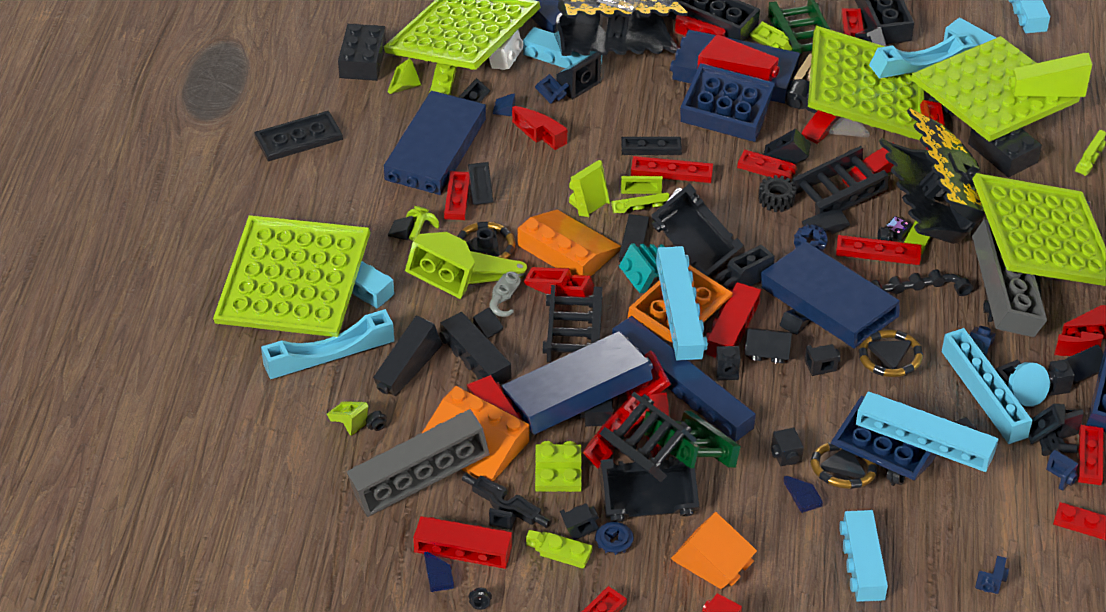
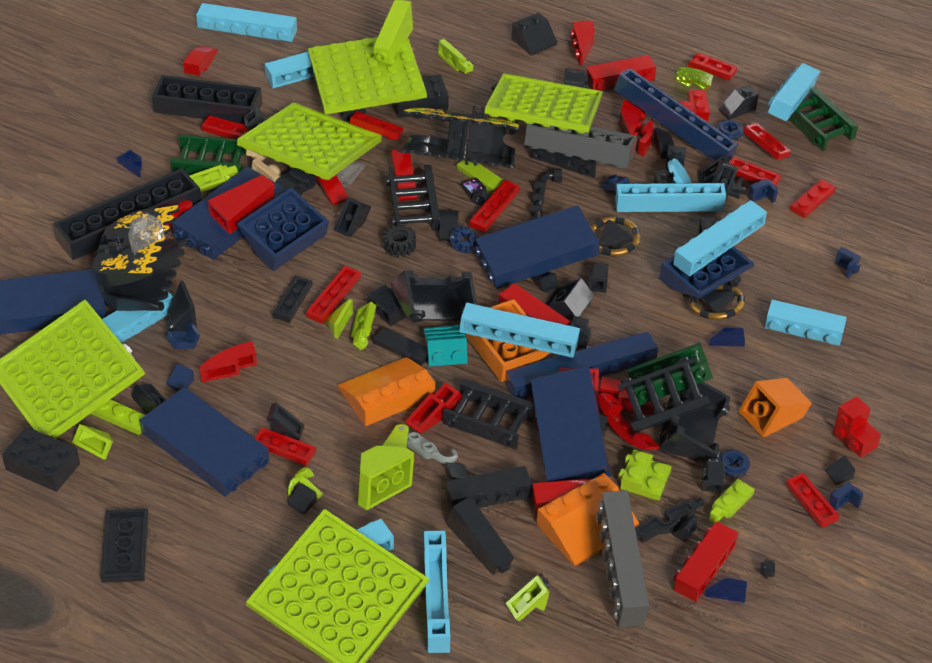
camera: 70 degrees left, 0 degrees up
(486, 239) = (351, 444): black piece -> none
(589, 189) = (336, 352): lime slope -> none
(746, 268) = (484, 283): black hinge -> none
(766, 165) = (362, 236): red plate -> none
(787, 447) = (682, 328): black brick -> none
(892, 62) = (304, 108): medium azure arch -> none

